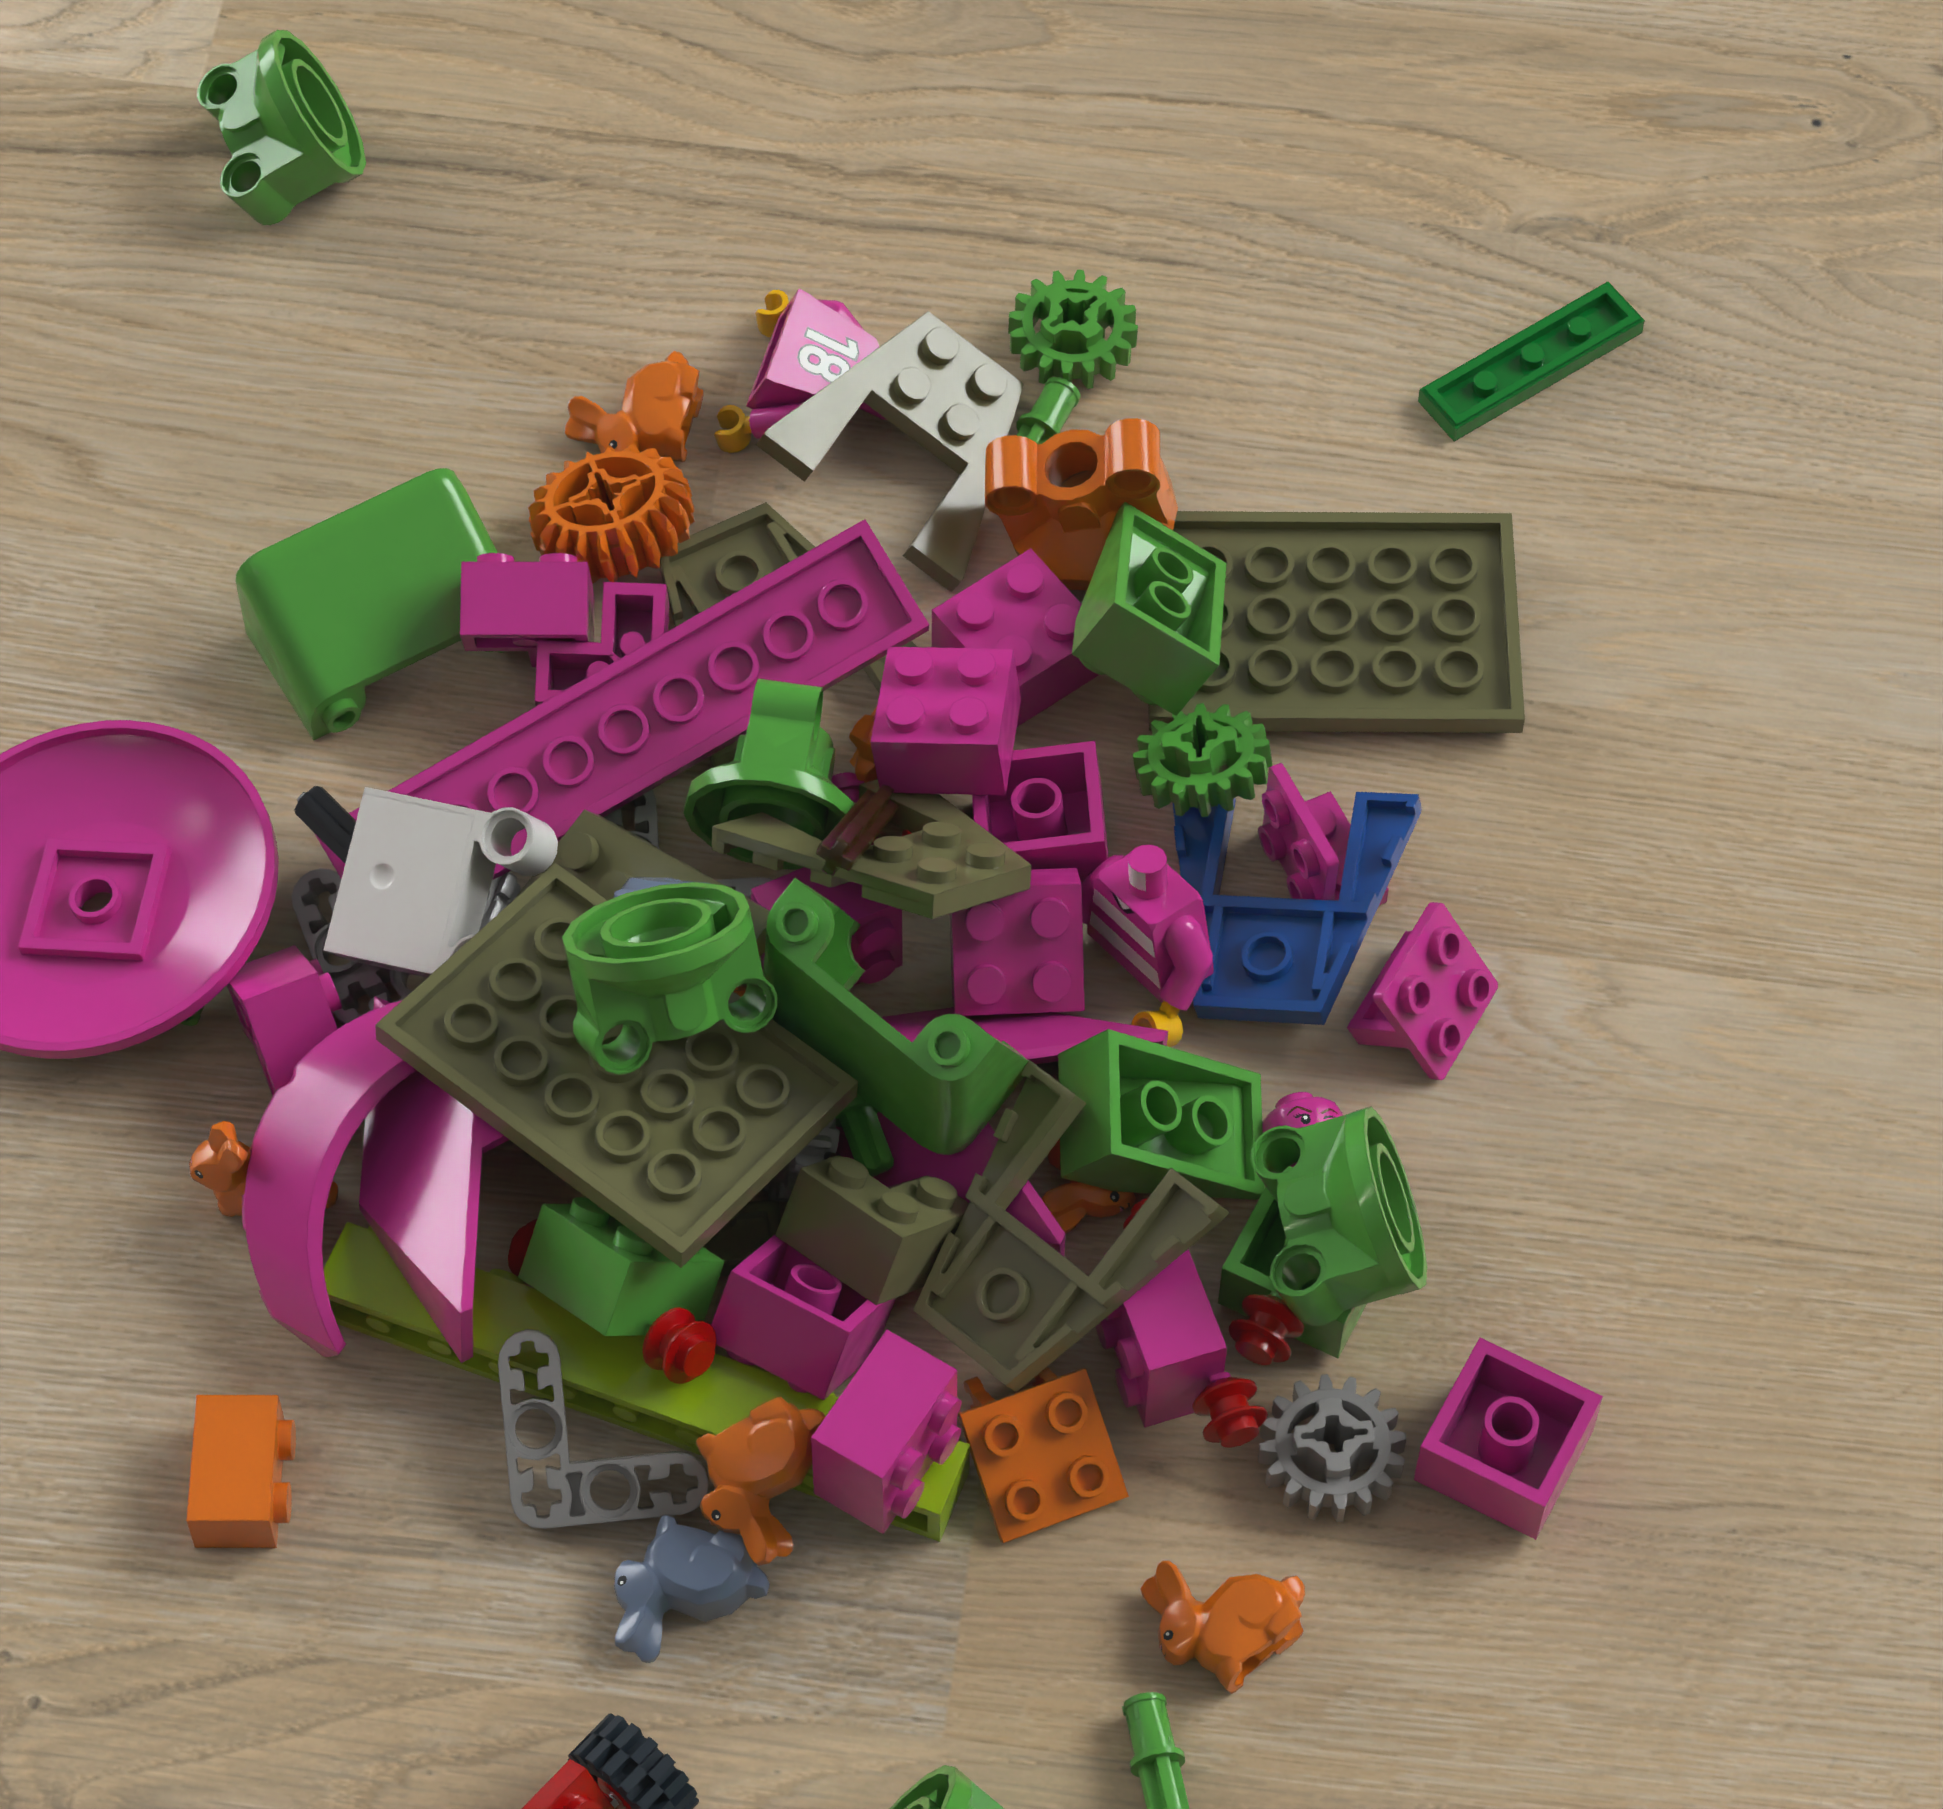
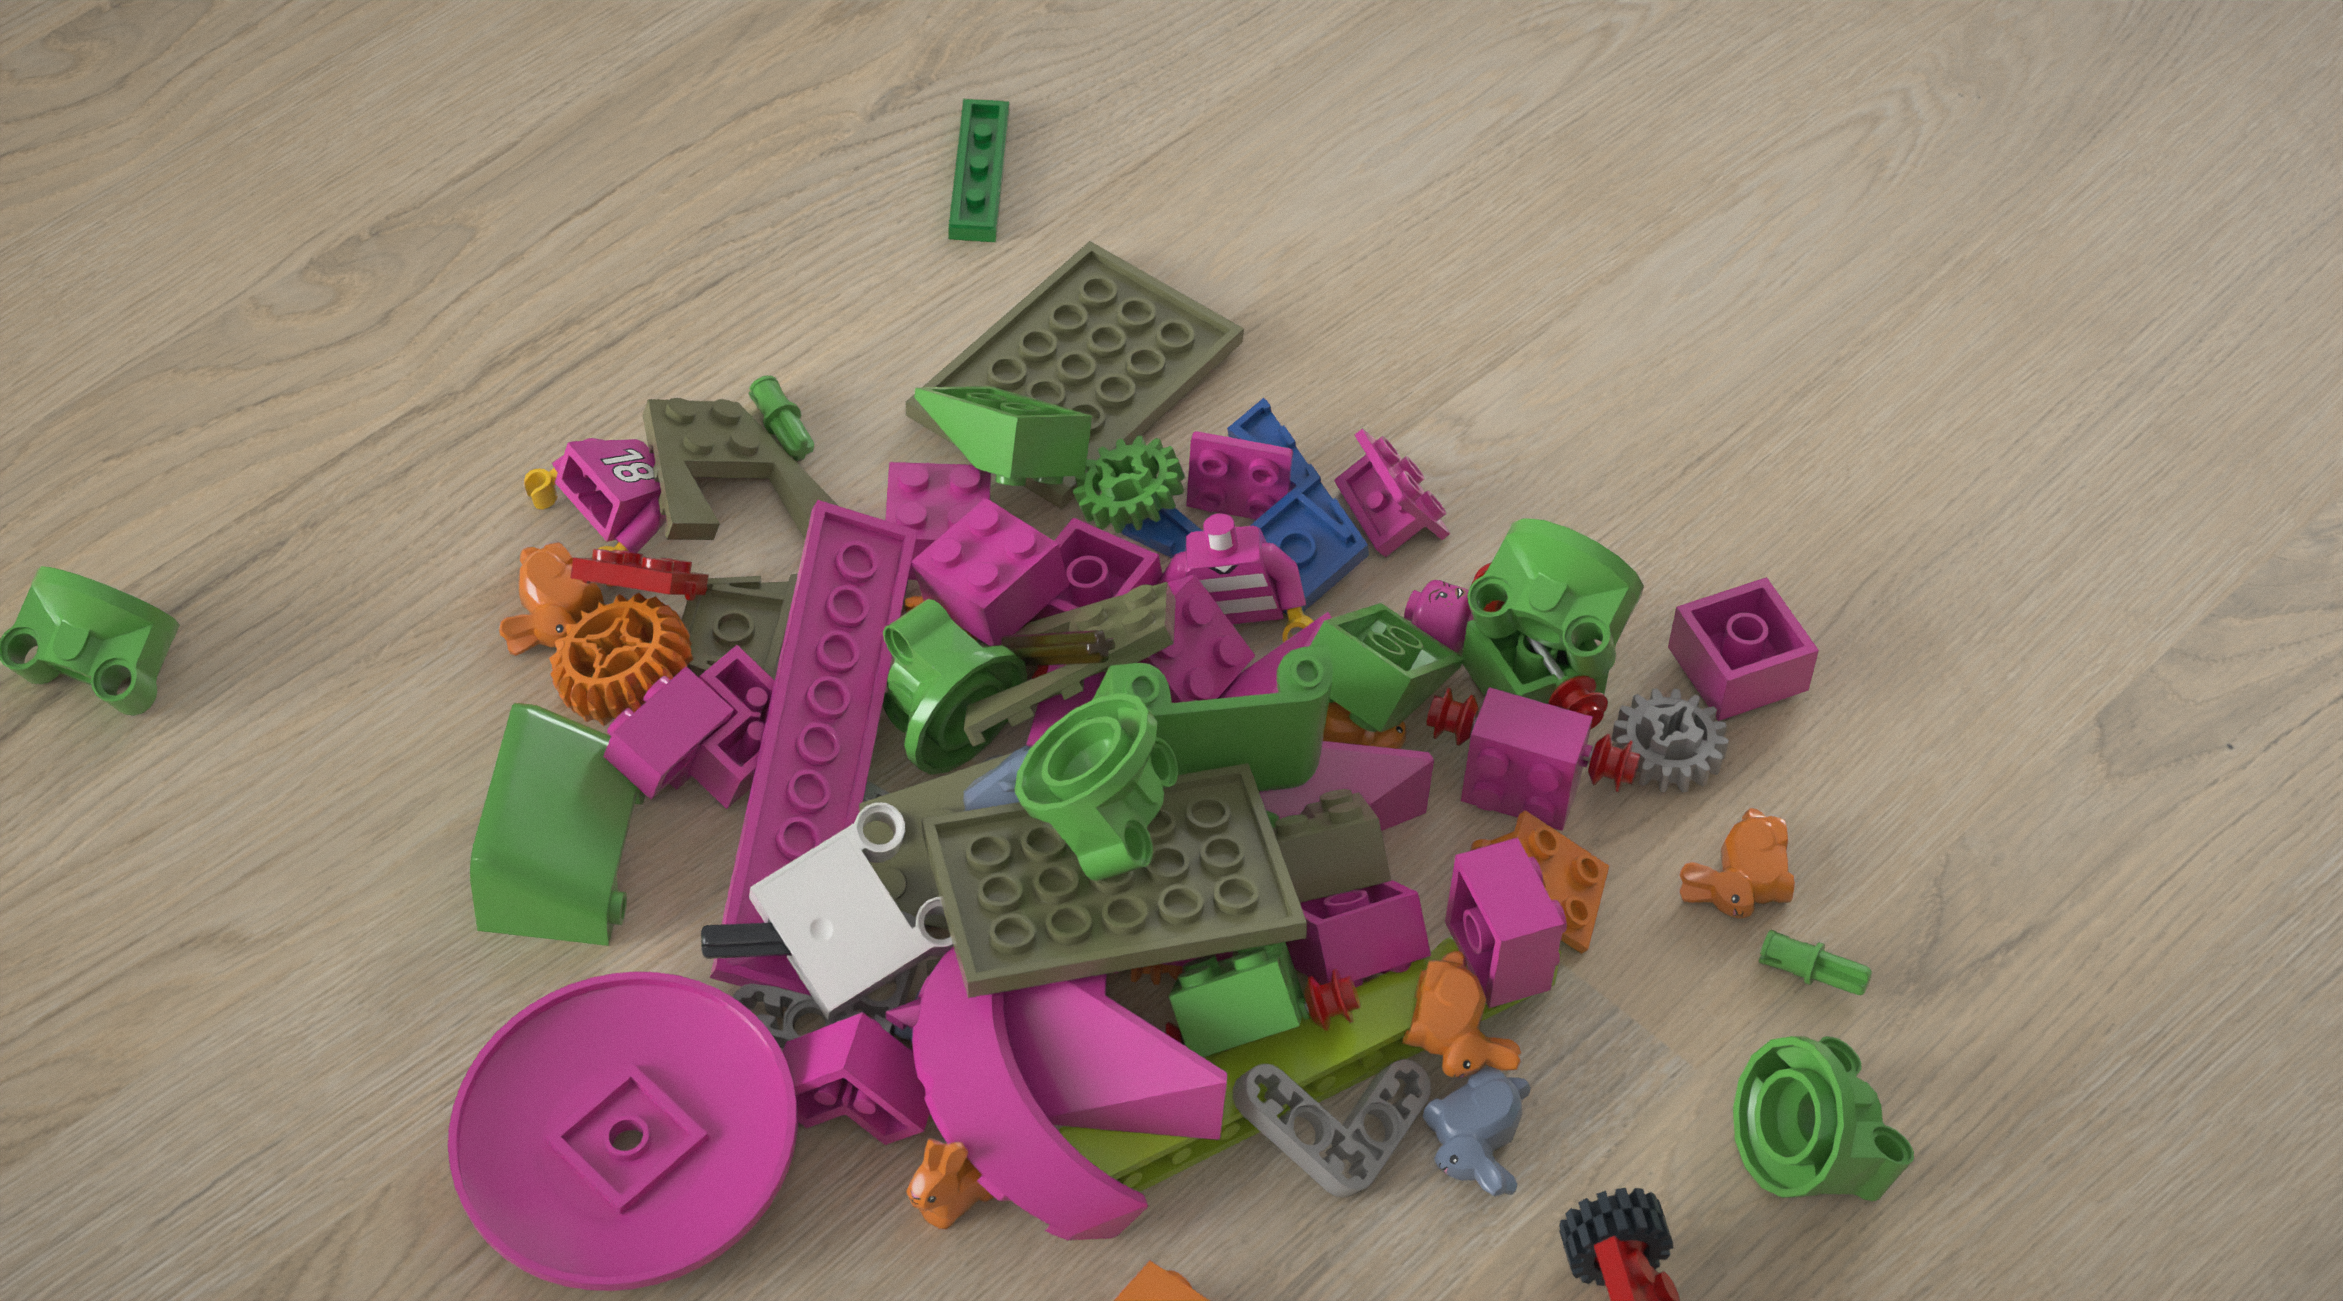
camera: 55 degrees left, 10 degrees down
(698, 456) = (640, 573): none -> red plate
(1011, 1293) = (1443, 802): olive wing -> none
(1069, 488) = (859, 444): orange piece -> none
(1073, 329) = (725, 351): bright green gear -> none

